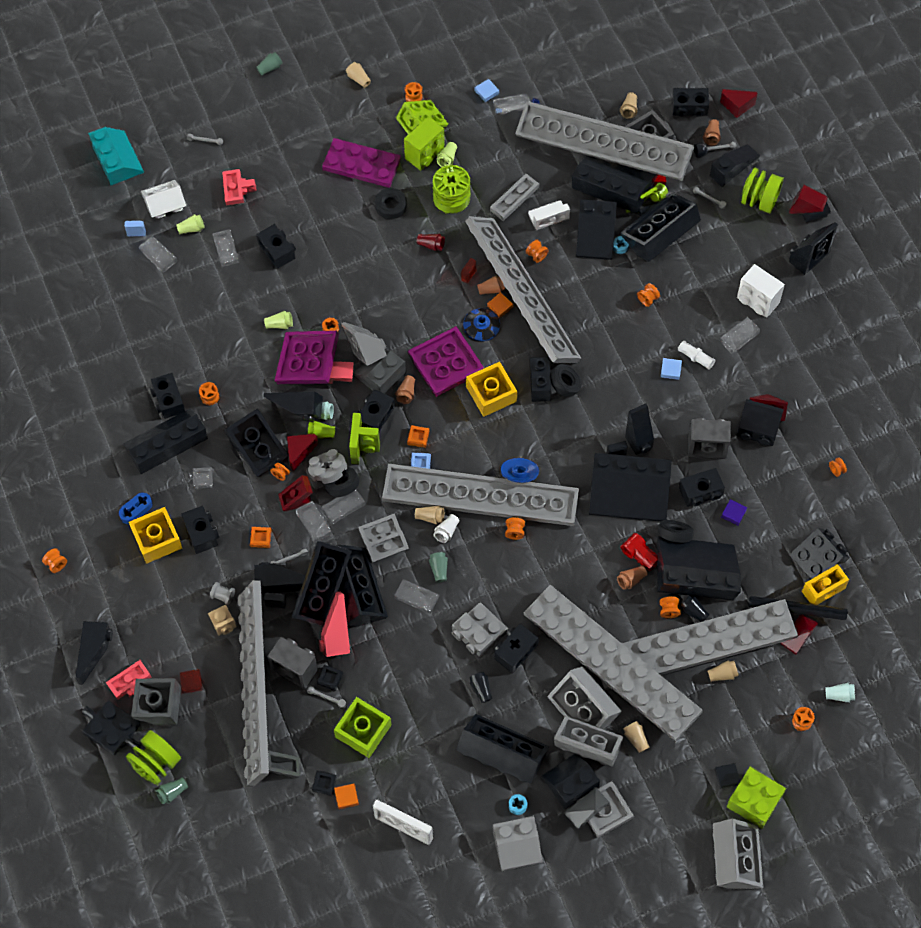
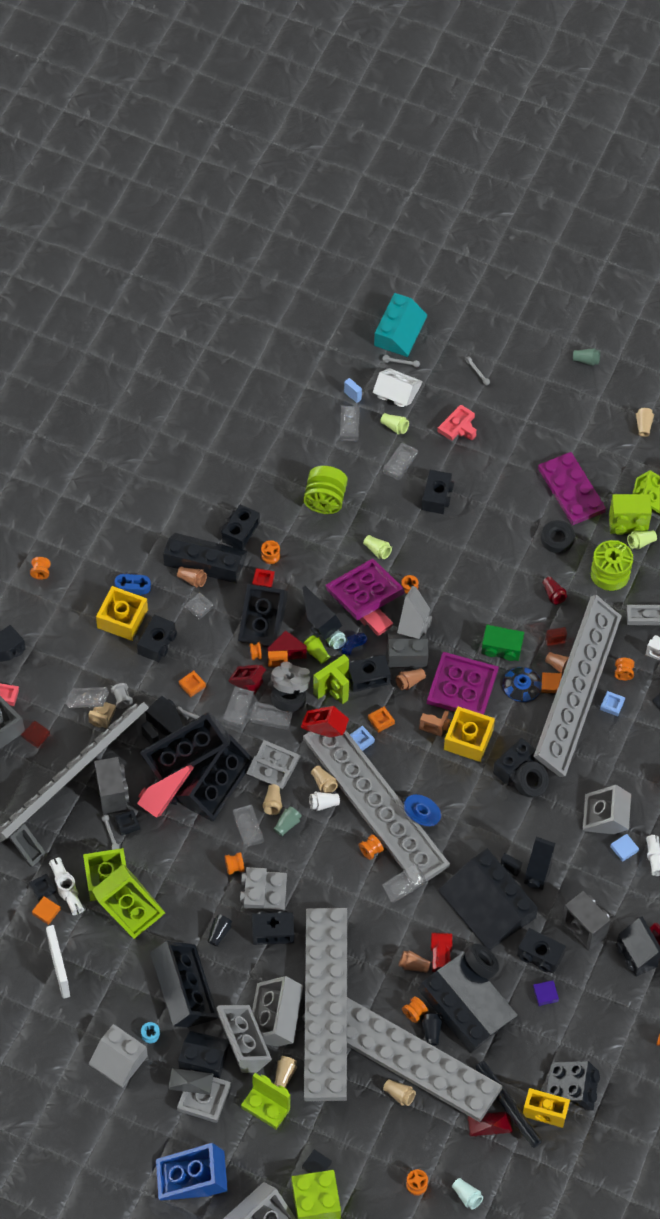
camera: 45 degrees right, 5 degrees down
(131, 186) = (386, 359): none -> light grey hinge
(173, 462) = (195, 577): none -> nougat cone
(200, 313) = (325, 489): none -> lime wheel
(200, 618) = (87, 697): none -> clear plate
(226, 416) = (263, 578): none -> red plate
(301, 462) = (275, 658): none -> orange tile
(338, 401) = (353, 641): none -> clear blue arm
(351, 769) = (68, 894): none -> white pin
(389, 473) = (325, 721): none -> red slope
(403, 730) = (128, 901): none -> lime slope
(414, 563) = (272, 802): none -> tan cone
(438, 630) = (234, 863): none -> orange wheel
(439, 308) = (502, 643): none -> green brick
(459, 406) = (434, 725): none -> nougat bracket
(554, 281) = (612, 703): none -> light blue tile
(566, 530) = (404, 883): none -> clear plate
(634, 355) = (607, 810): none -> light grey slope
(650, 768) = (267, 1101): none -> lime bracket
(659, 870) = (192, 1173): none -> blue slope

